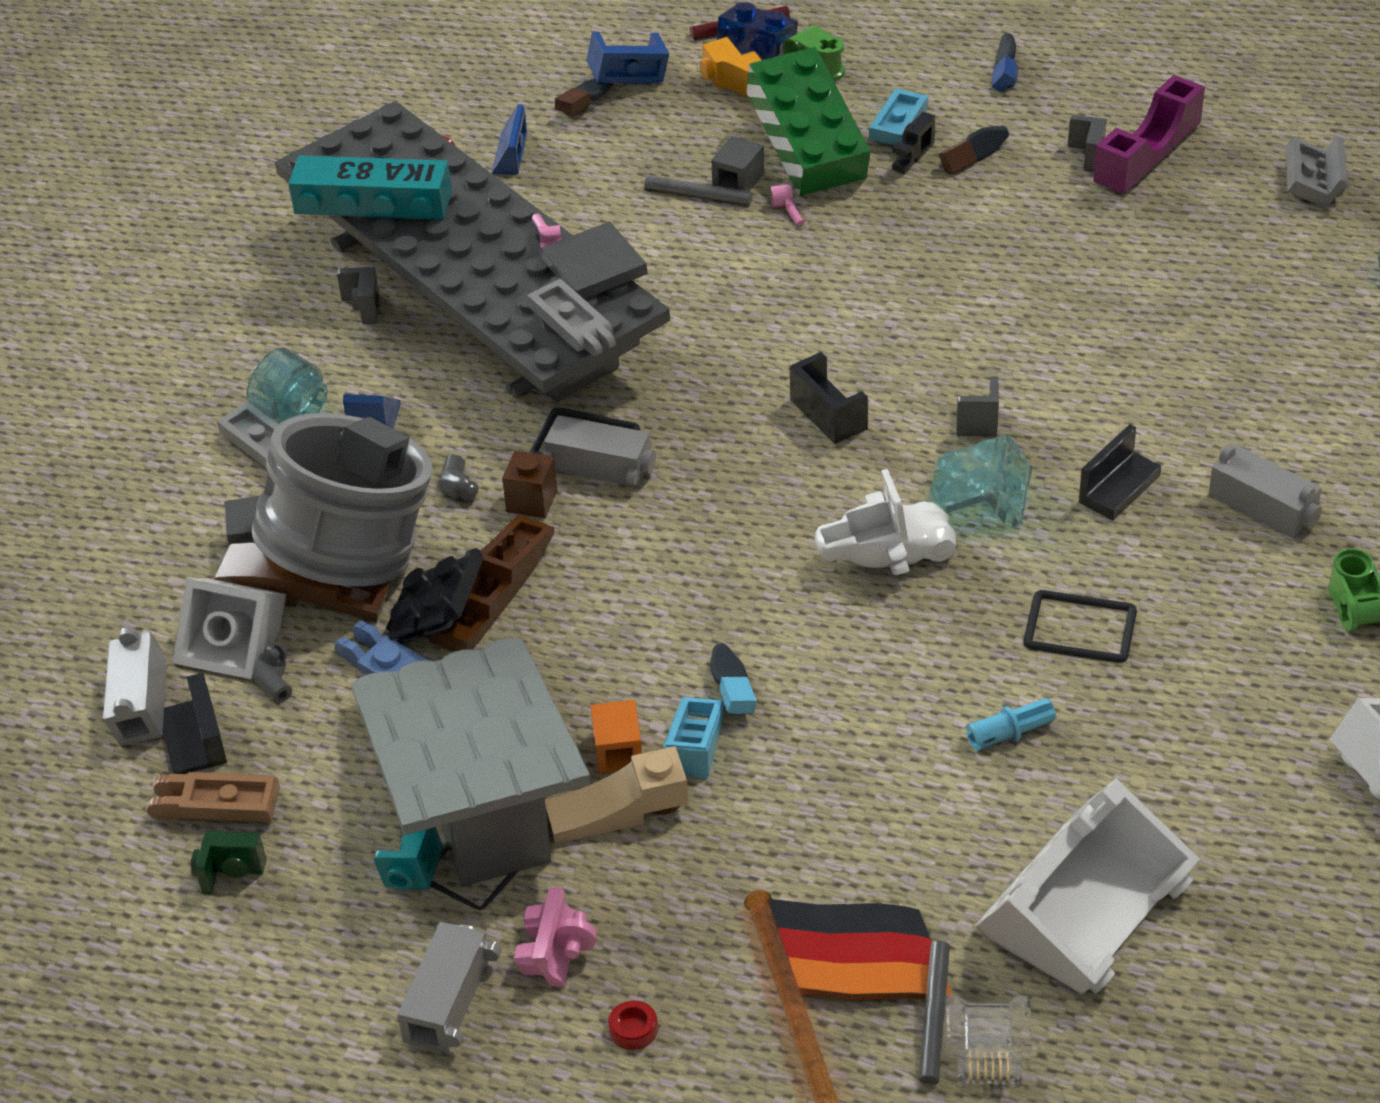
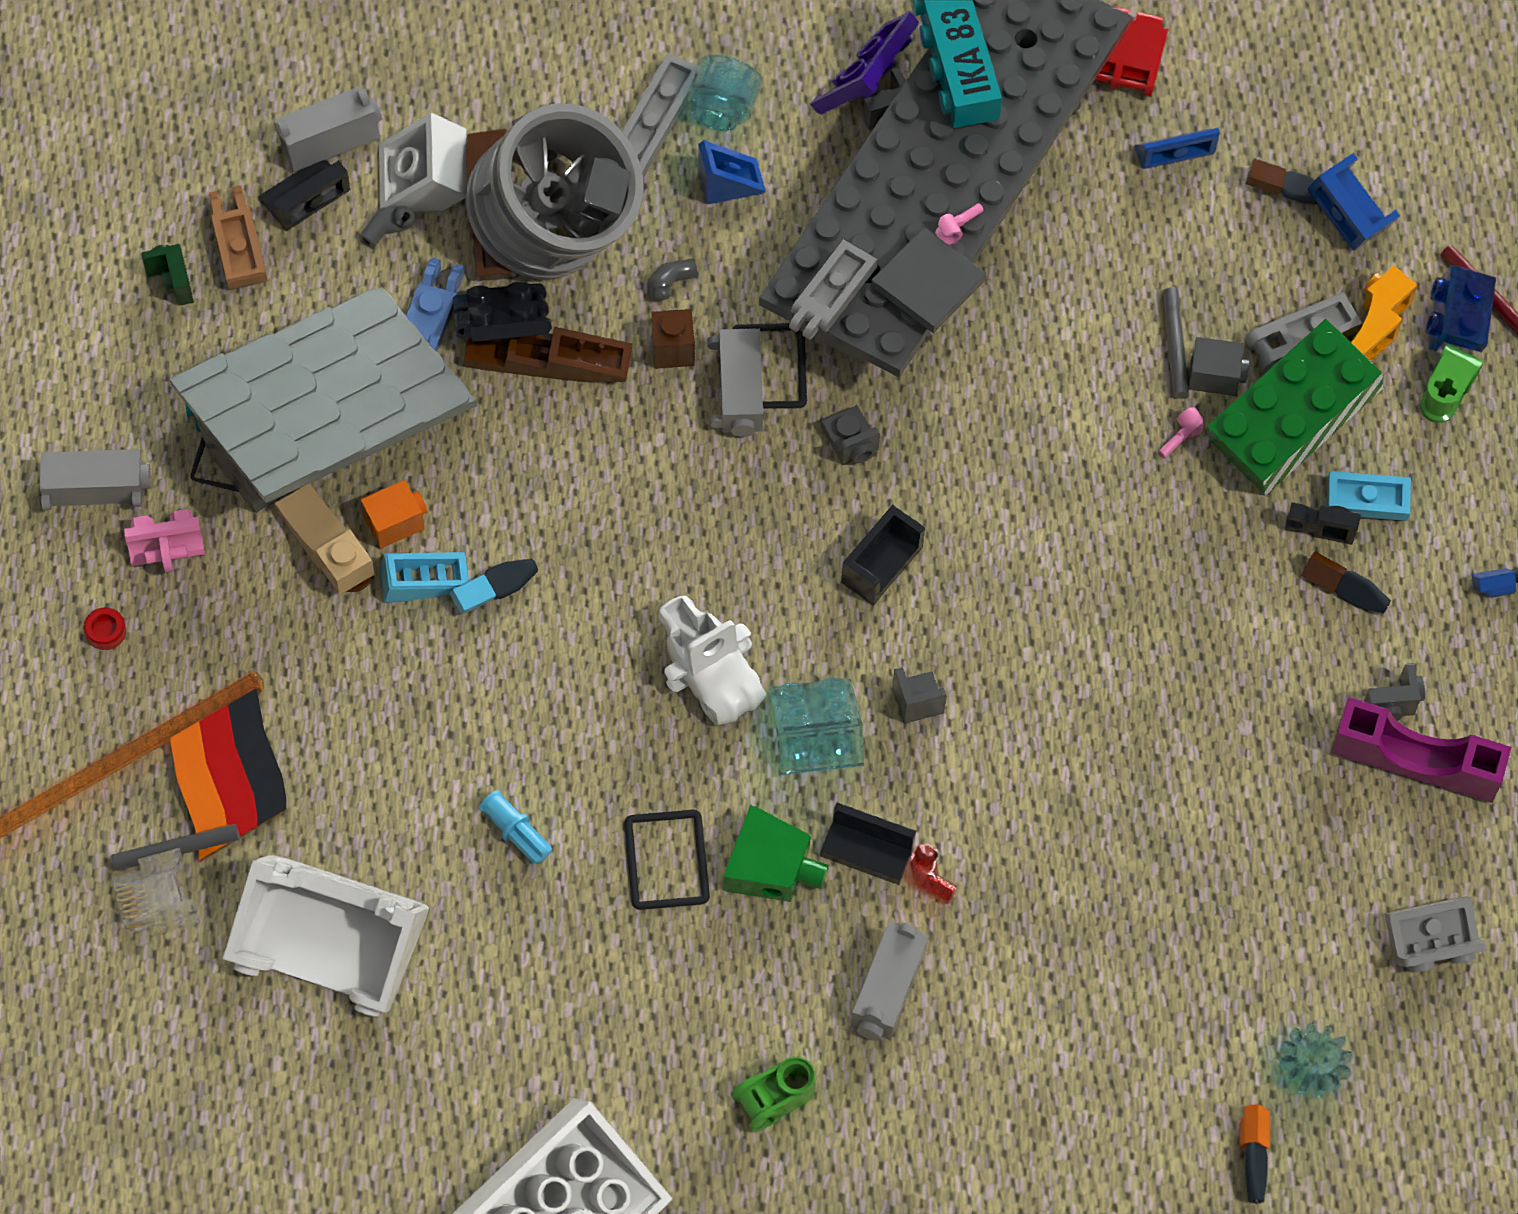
camera: 65 degrees right, 20 degrees up
(320, 293) = (874, 61): none -> dark purple wing
(691, 399) = (851, 436): none -> dark grey bracket
(727, 112) = (1298, 325): none -> light grey plate
(1110, 543) = (771, 859): none -> green torso
(1165, 450) = (926, 874): none -> clear red arm

